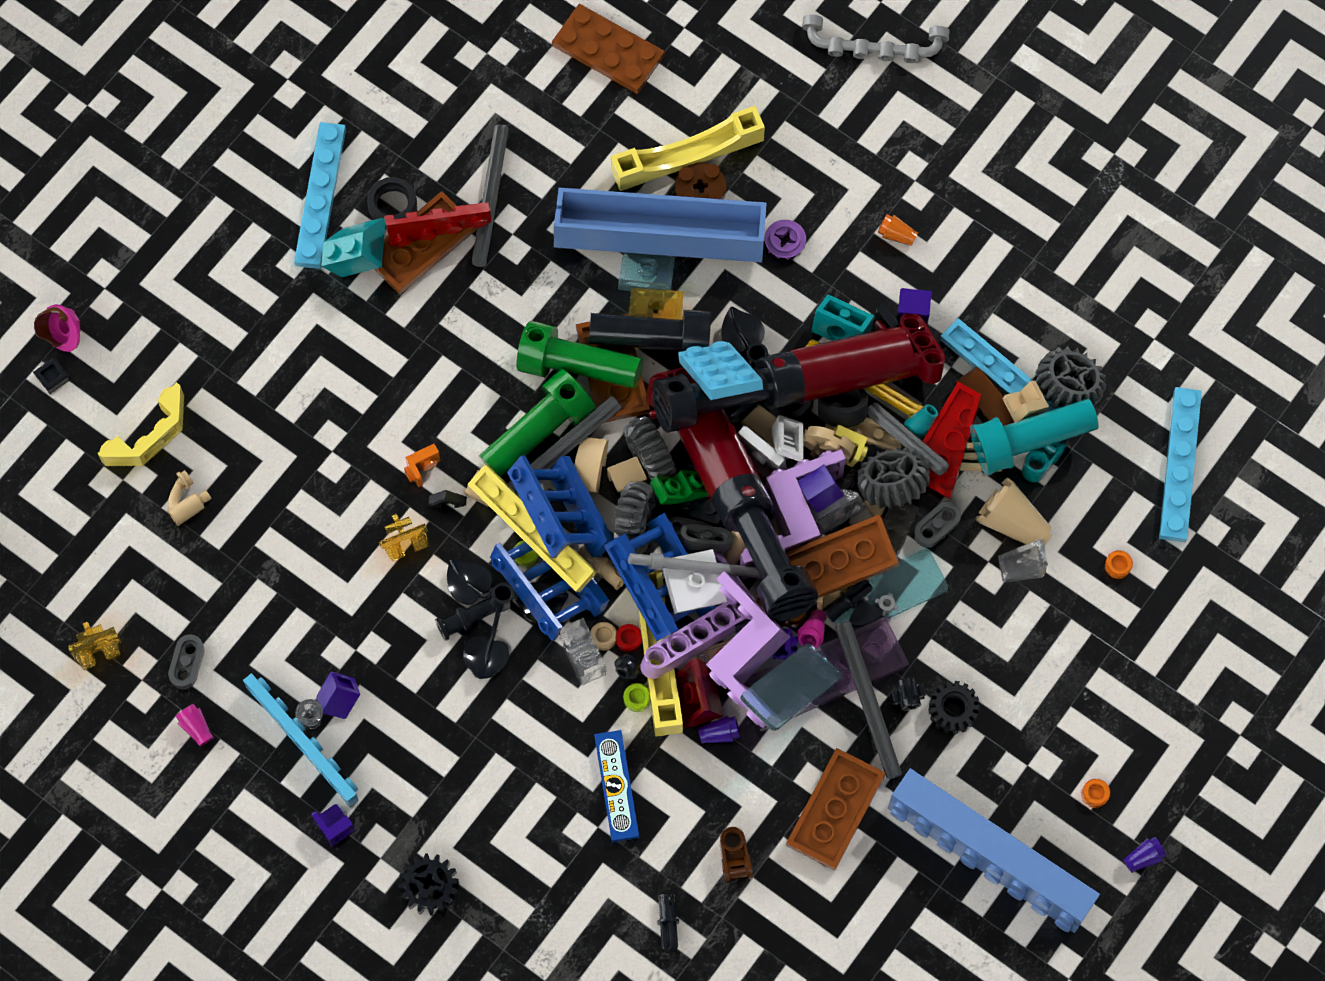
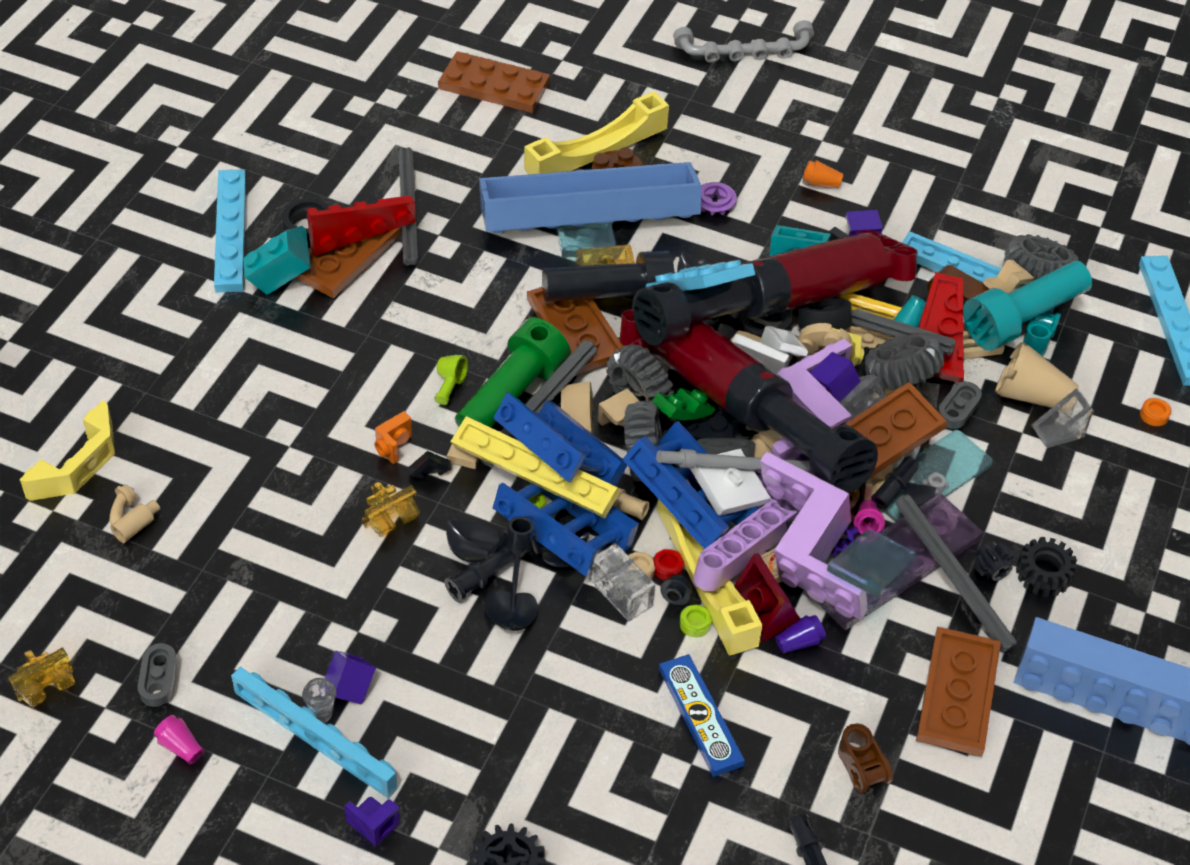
camera: 15 degrees left, 20 degrees down
(491, 400) = (454, 371): none -> lime bar
(543, 350) = (500, 312): green piece -> none

